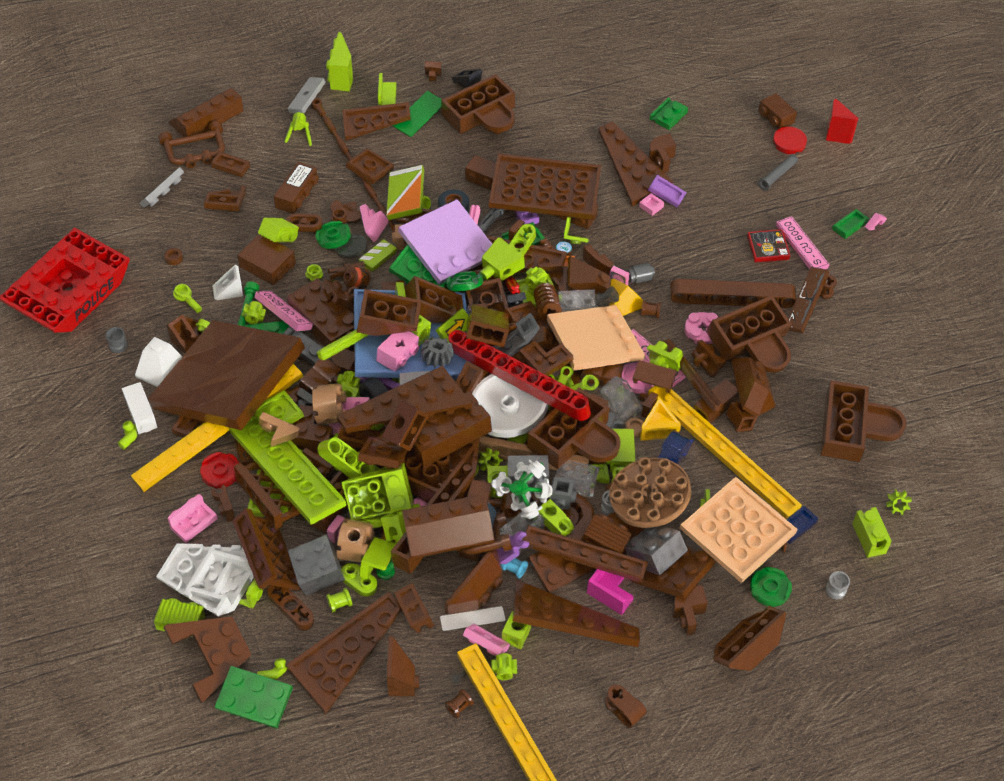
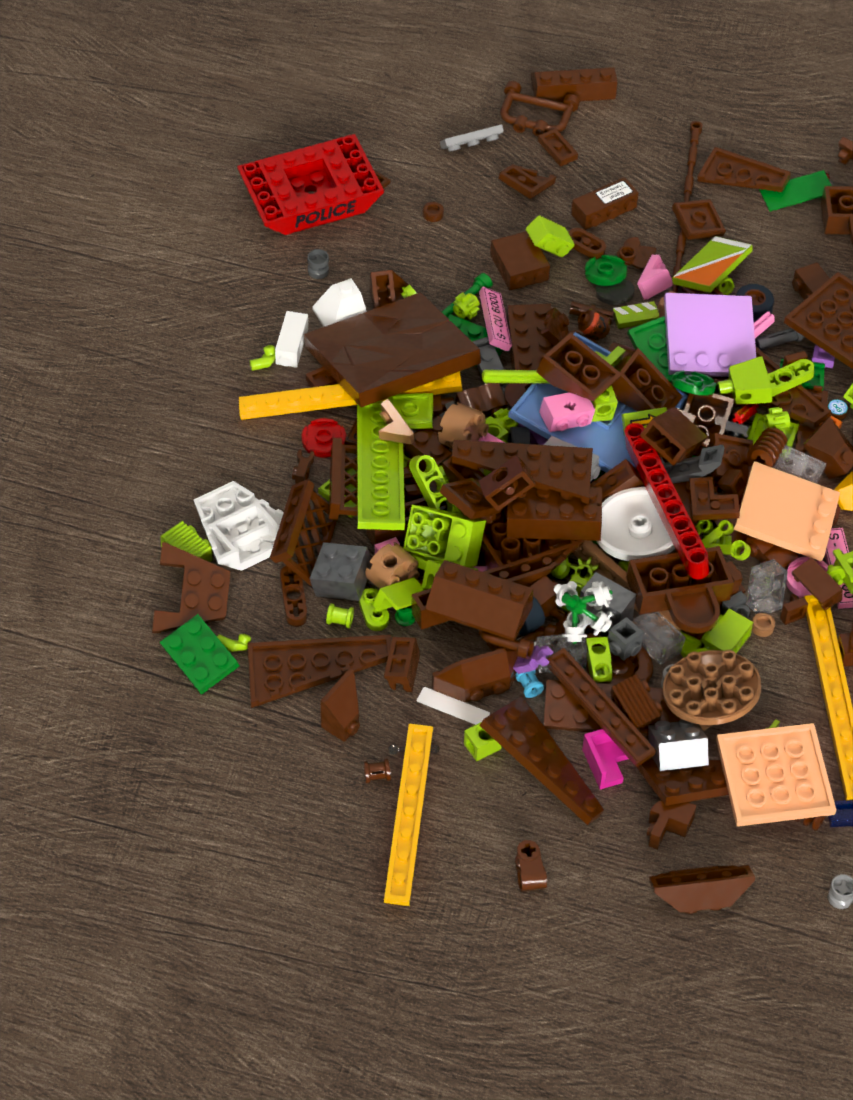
camera: 35 degrees right, 0 degrees up
(184, 293) = (415, 252): lime plate -> none
(191, 518) = (262, 465): bright pink bracket -> none
(228, 285) = (464, 267): white slope -> none
(253, 595) = (264, 565): lime bracket -> none
(298, 123) = (659, 138): lime plant -> none
(306, 95) = (686, 115): light grey tile -> none
(313, 272) = (557, 298): lime plate -> none
(340, 65) = (746, 98): lime slope -> none
(386, 92) = (778, 150): lime panel -> none
(437, 352) = (605, 435): dark grey gear -> none
(486, 639) = (447, 731): bright pink plate -> none
(504, 666) = (443, 764): lime gear -> none
(607, 297) = (838, 478): clear smoke bush -> none
(659, 423) = (786, 633): yellow slope -> none
(676, 446) = (782, 663): clear blue brick -> none
(770, 587) = (772, 853): green tile -> none

